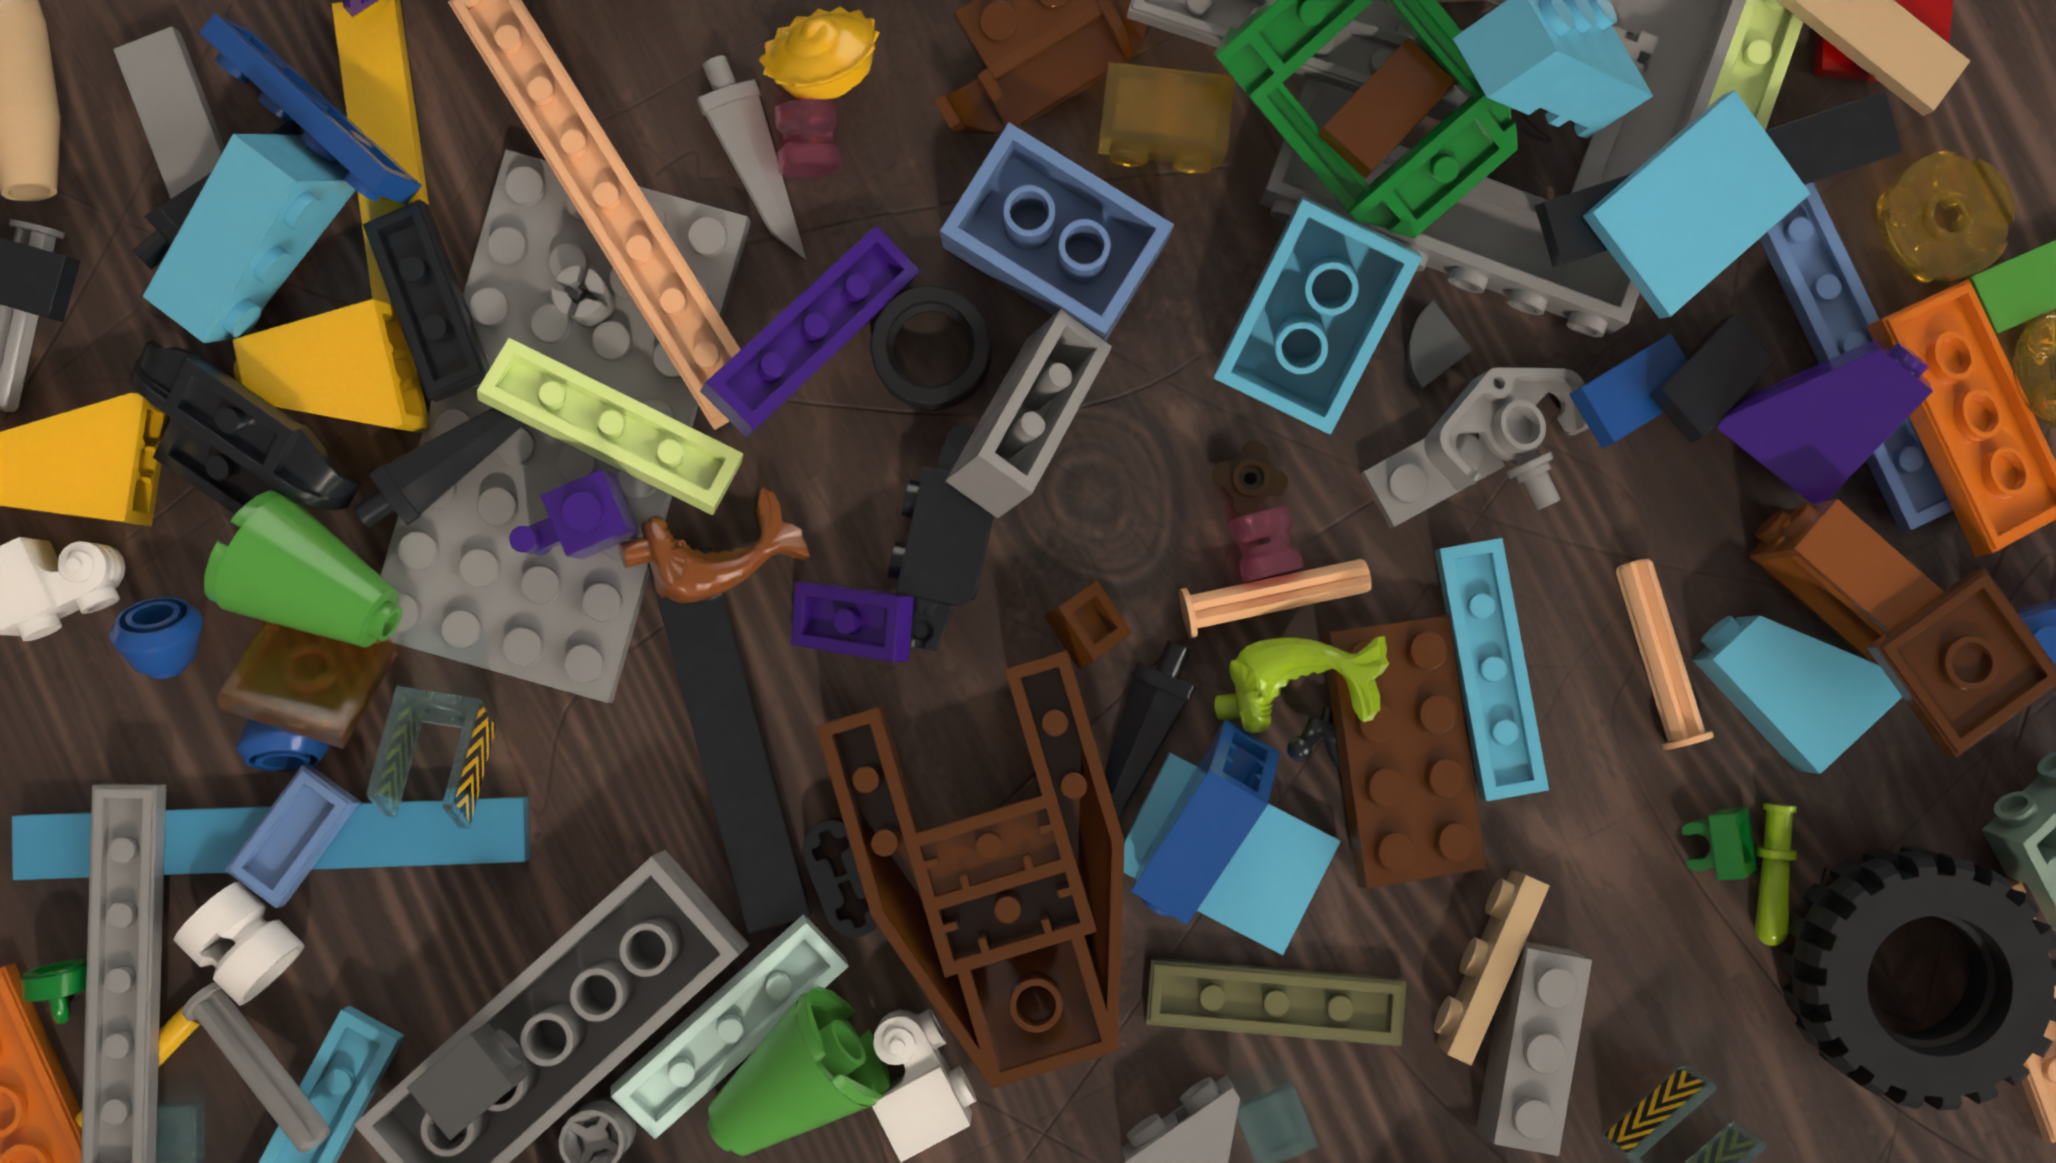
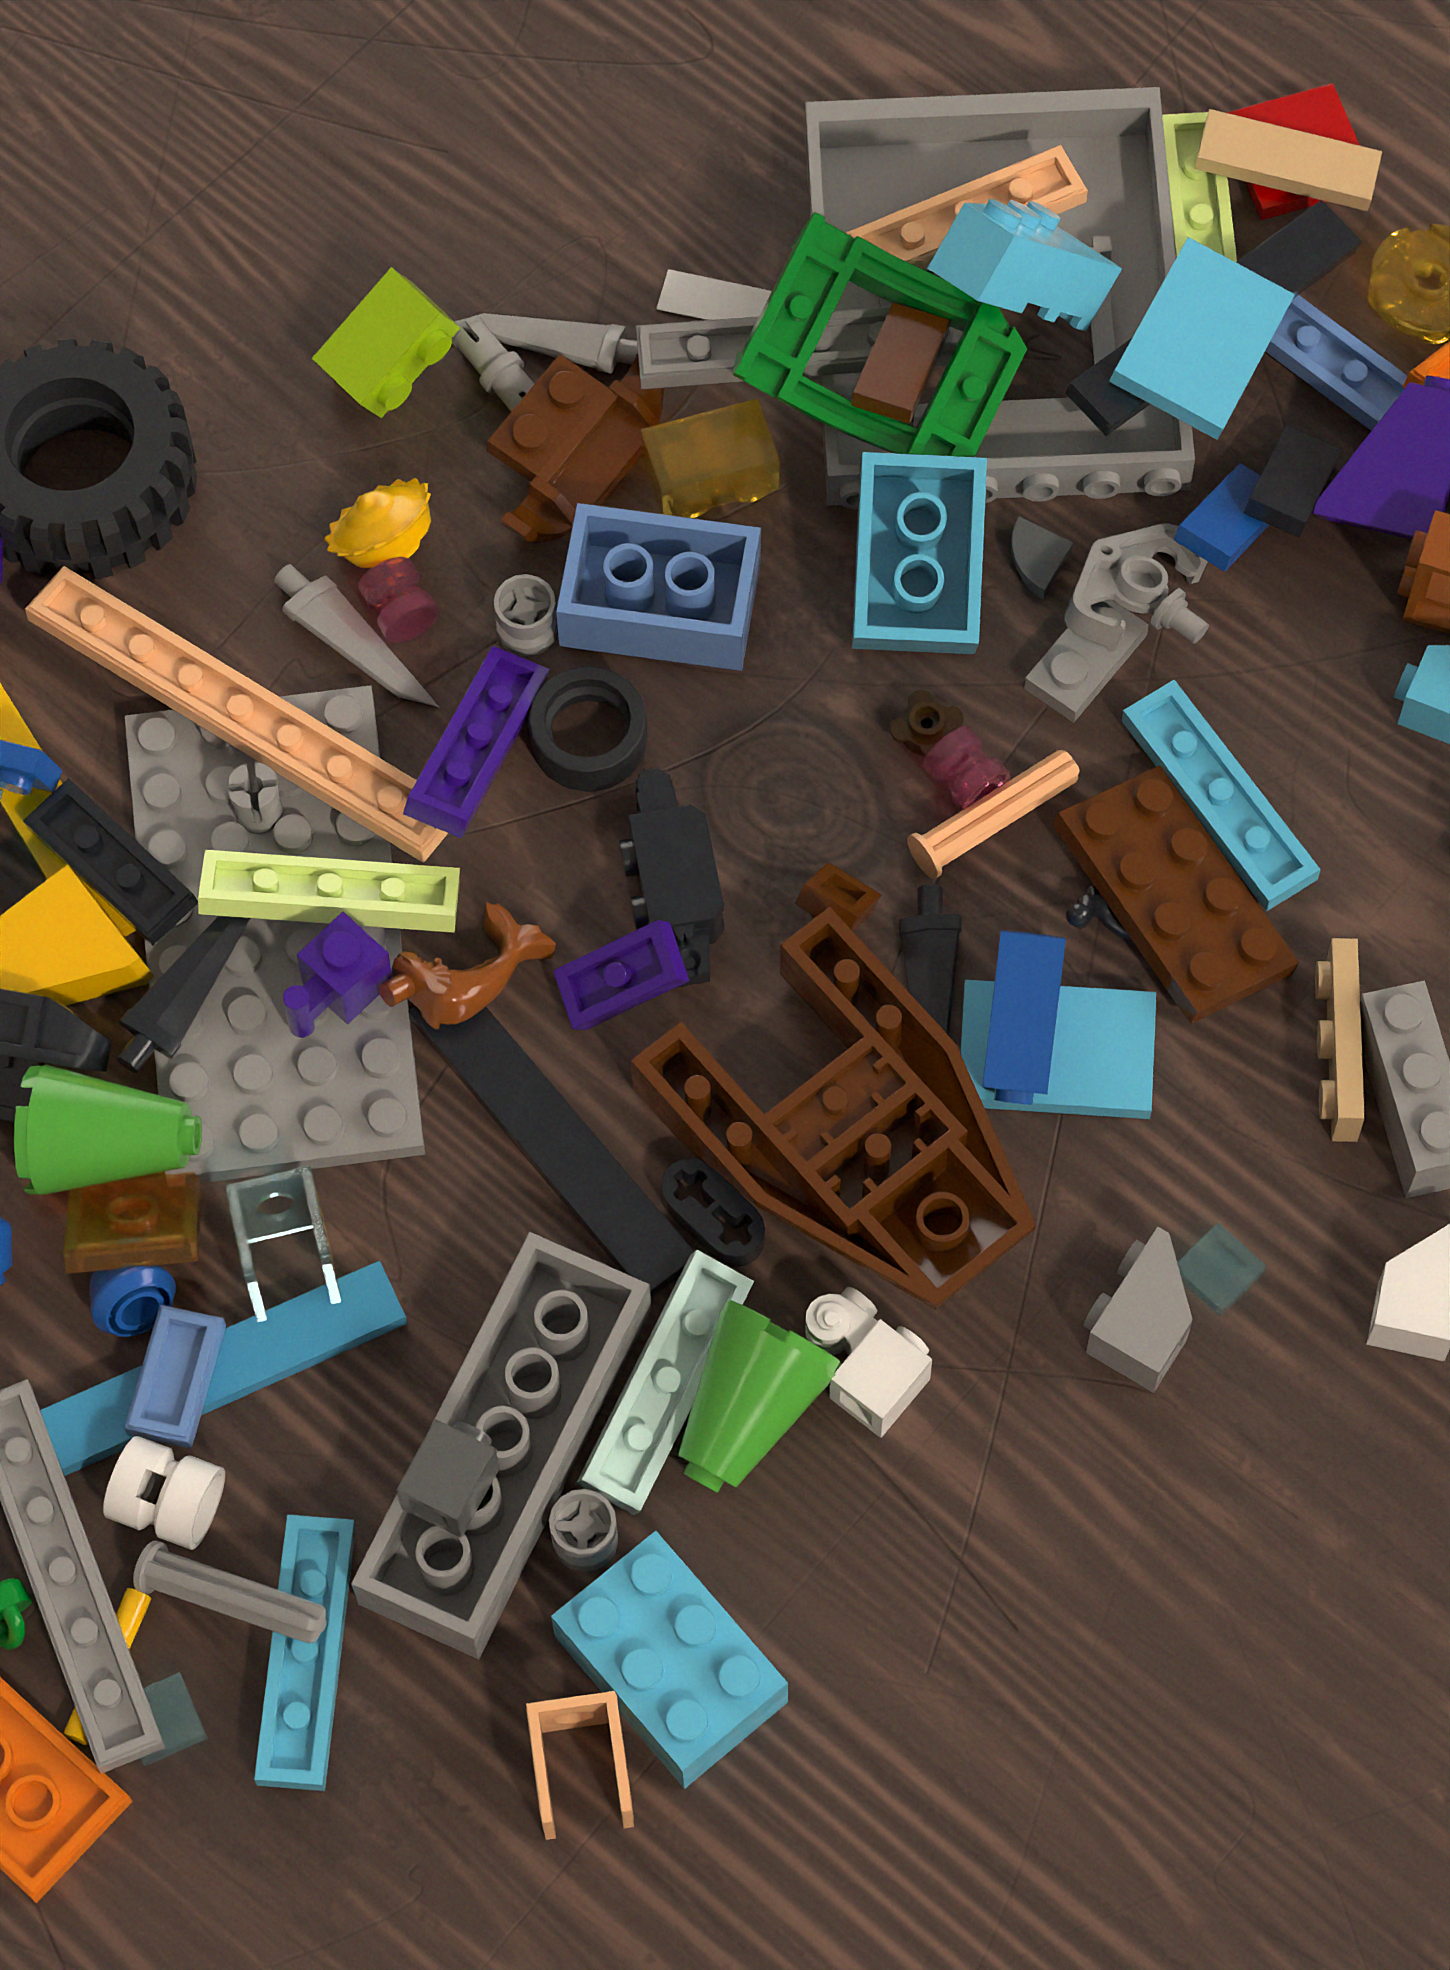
camera: 20 degrees left, 20 degrees down
(919, 193) = (529, 602): none -> light grey wheel
(1029, 414) = (704, 730): light grey brick -> none
(1272, 662) = (1019, 861): lime animal -> none
(1275, 1001) = (1164, 1160): olive tile -> none
(1661, 655) = (1367, 726): light nougat axle -> none

